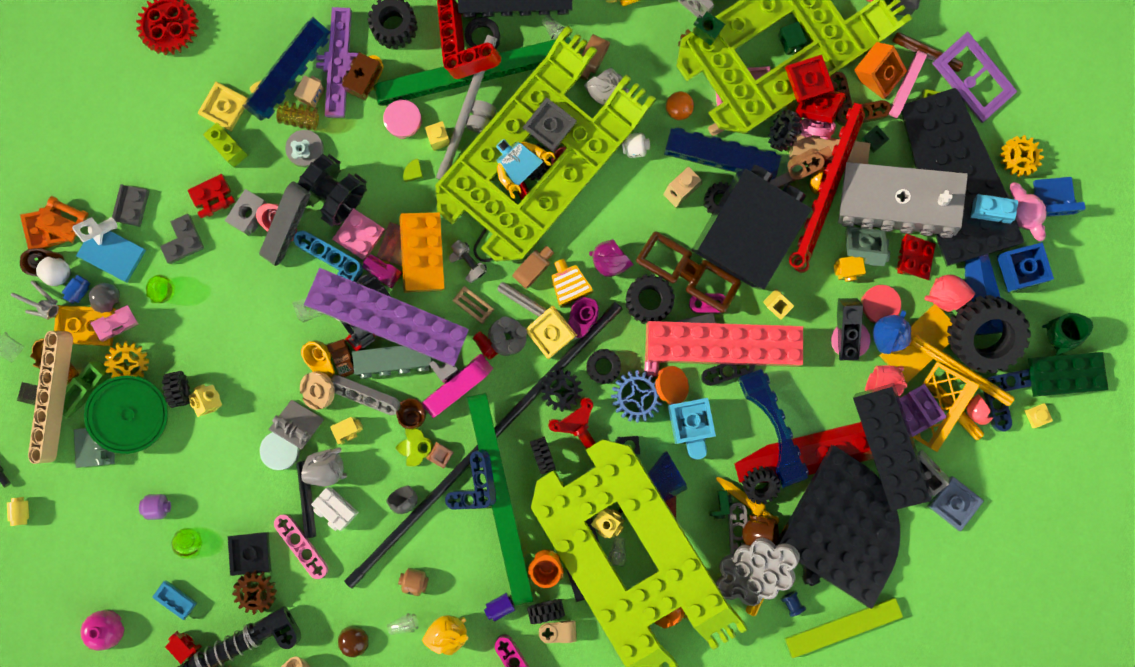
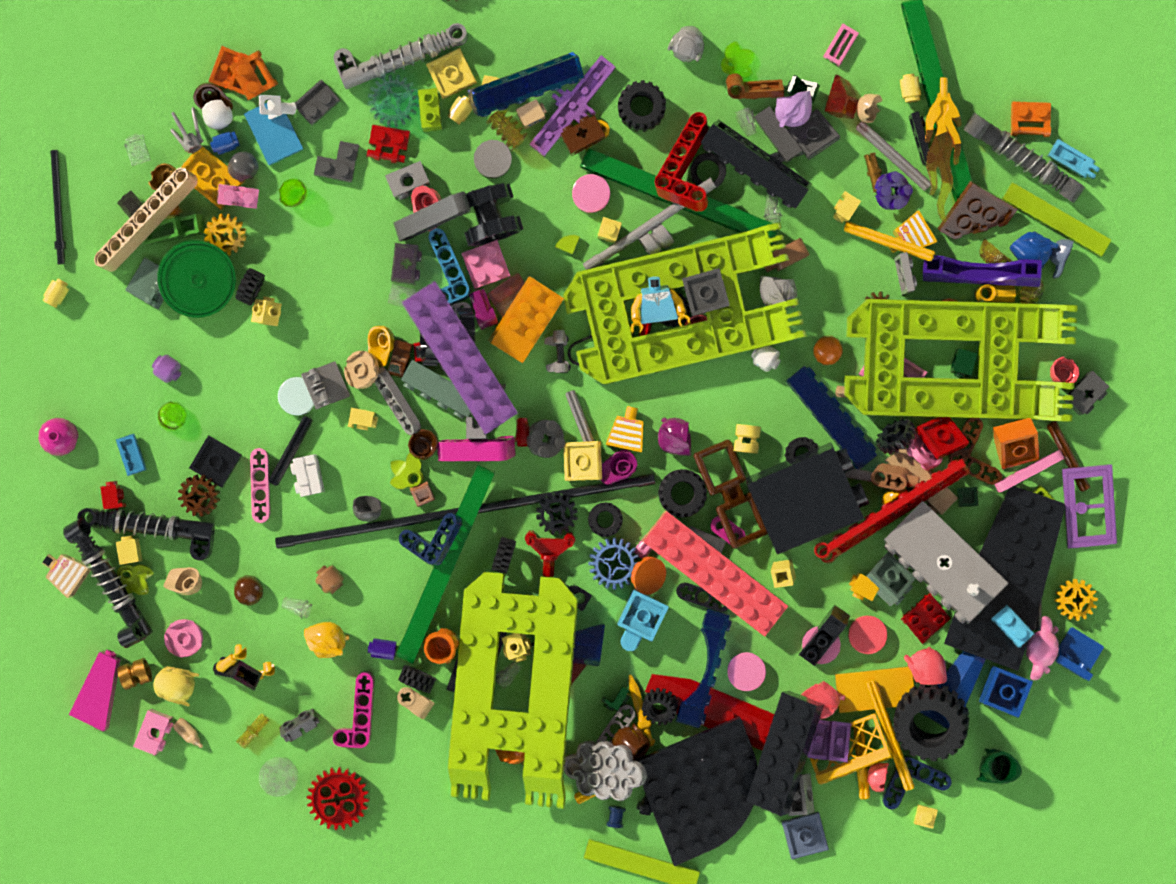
camera: 30 degrees right, 5 degrees up
(171, 123) = (397, 58): none -> light grey piece
(196, 146) = (401, 98): none -> clear light blue gear
(250, 128) = (460, 109): none -> light yellow brick
(284, 273) = (402, 253): none -> brick
(304, 153) = (490, 165): light aqua plate -> none
(323, 468) = (323, 437): light grey helmet -> none
(460, 295) = (532, 376): tan tile -> none
(533, 267) = (608, 396): medium nougat piece -> none
(665, 213) = (750, 432): none -> light yellow wheel
(683, 186) = (778, 420): tan torso -> none
(708, 35) = (900, 313): dark green brick -> none
(808, 405) = (746, 671): none -> bright pink tile
(809, 78) = (948, 408): red plate -> none
(892, 333) = (856, 664): blue helmet -> none
(1068, 374) = (974, 801): dark green plate -> none

